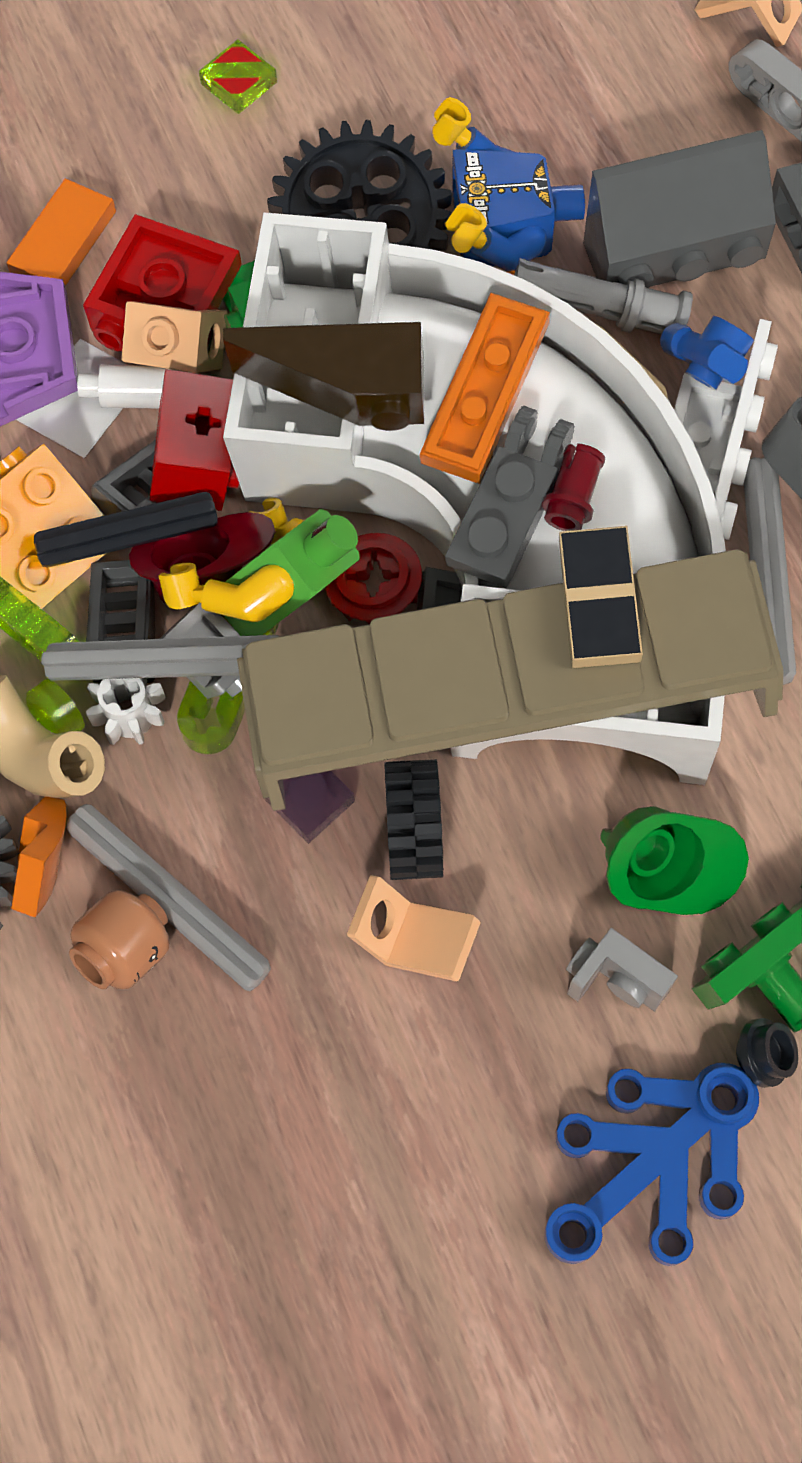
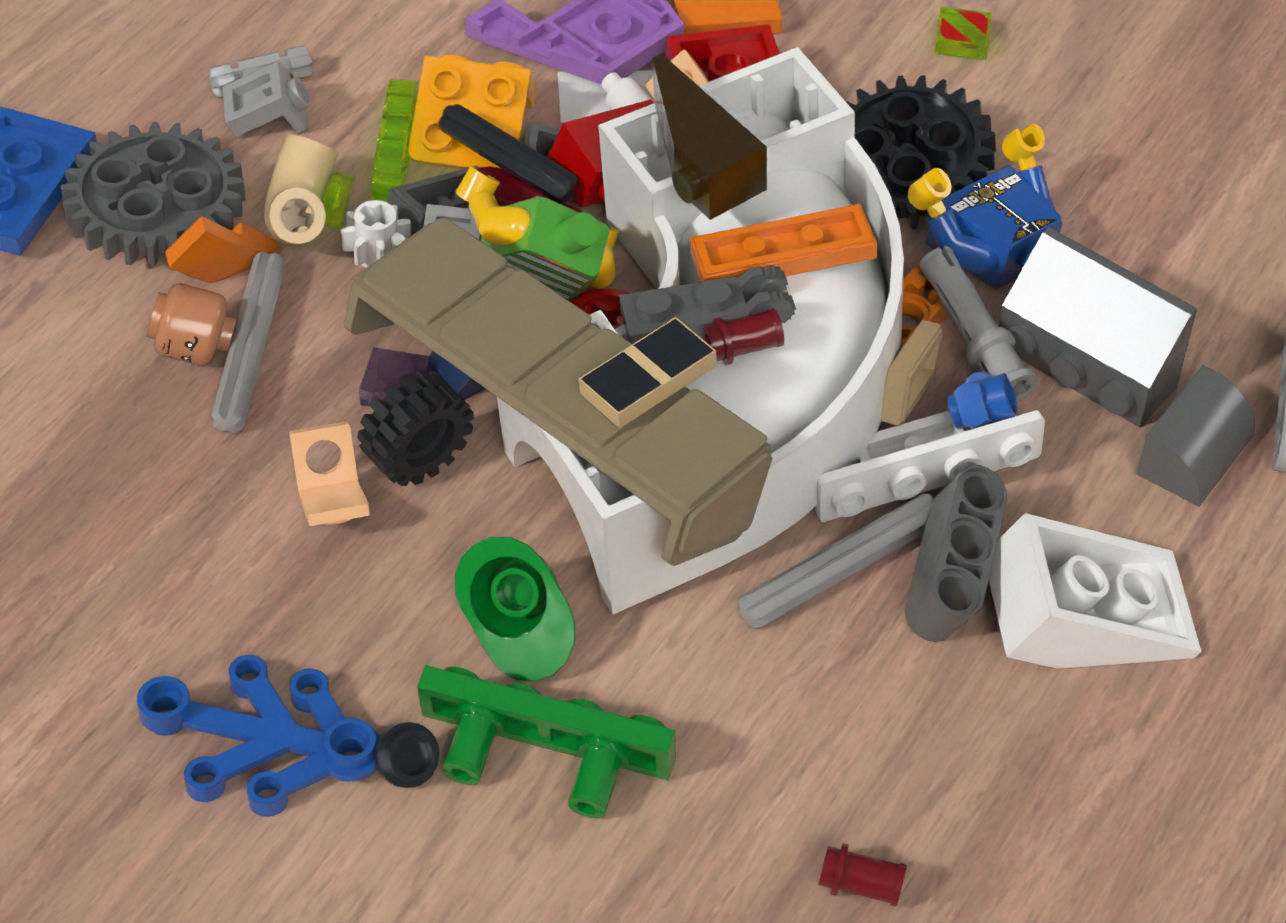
camera: 50 degrees right, 20 degrees down
(146, 658) = (395, 193): light grey axle -> none
(630, 970) = (400, 616): light grey bracket -> none

